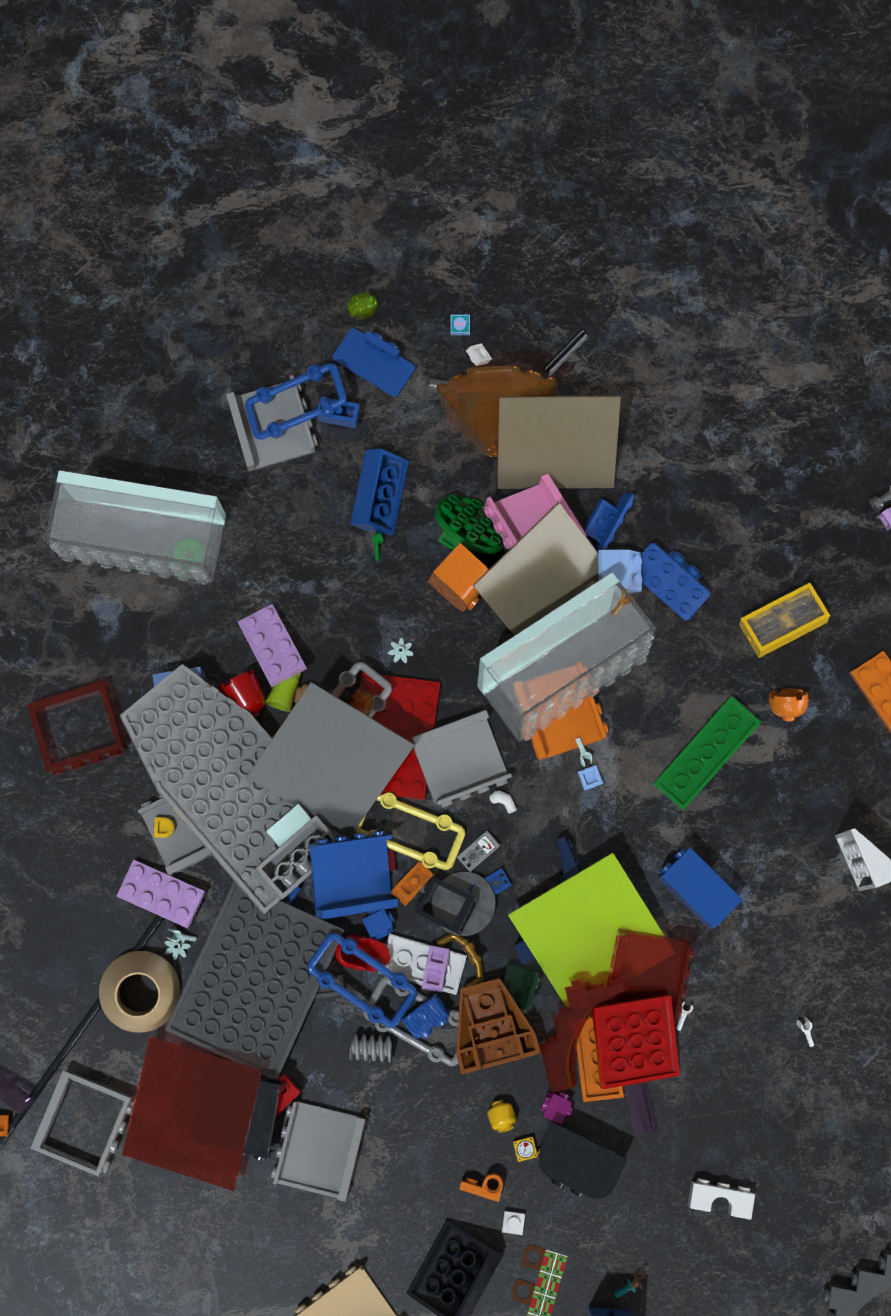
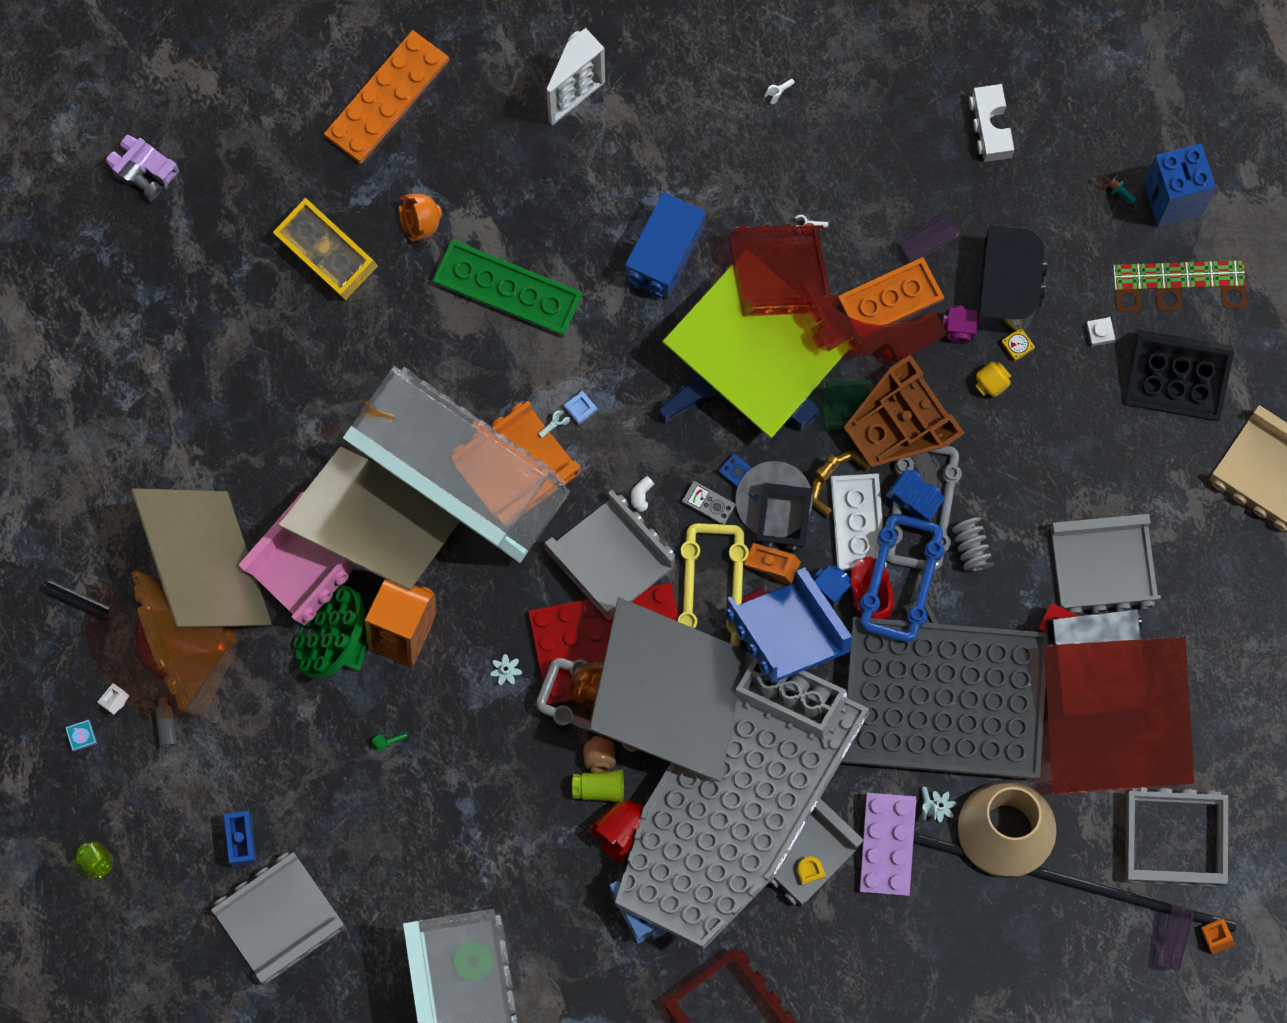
camera: 110 degrees left, 5 degrees down
(272, 645) = (551, 818): lavender plate -> none
(288, 825) = (759, 715): light aqua slope -> none
(324, 408) = (244, 850): blue bar -> none
(374, 361) = (160, 822): blue bracket -> none
(379, 492) = (322, 759): blue slope -> none
(435, 968) = (859, 504): lavender slope -> none
(471, 1185) = (1080, 386): orange plate -> none
(606, 520) = (271, 483): blue bracket -> none
(624, 565) = (327, 447): light blue slope -> none
(635, 1041) = (858, 260): red plate -> none
(673, 580) = (318, 388): blue bracket -> none

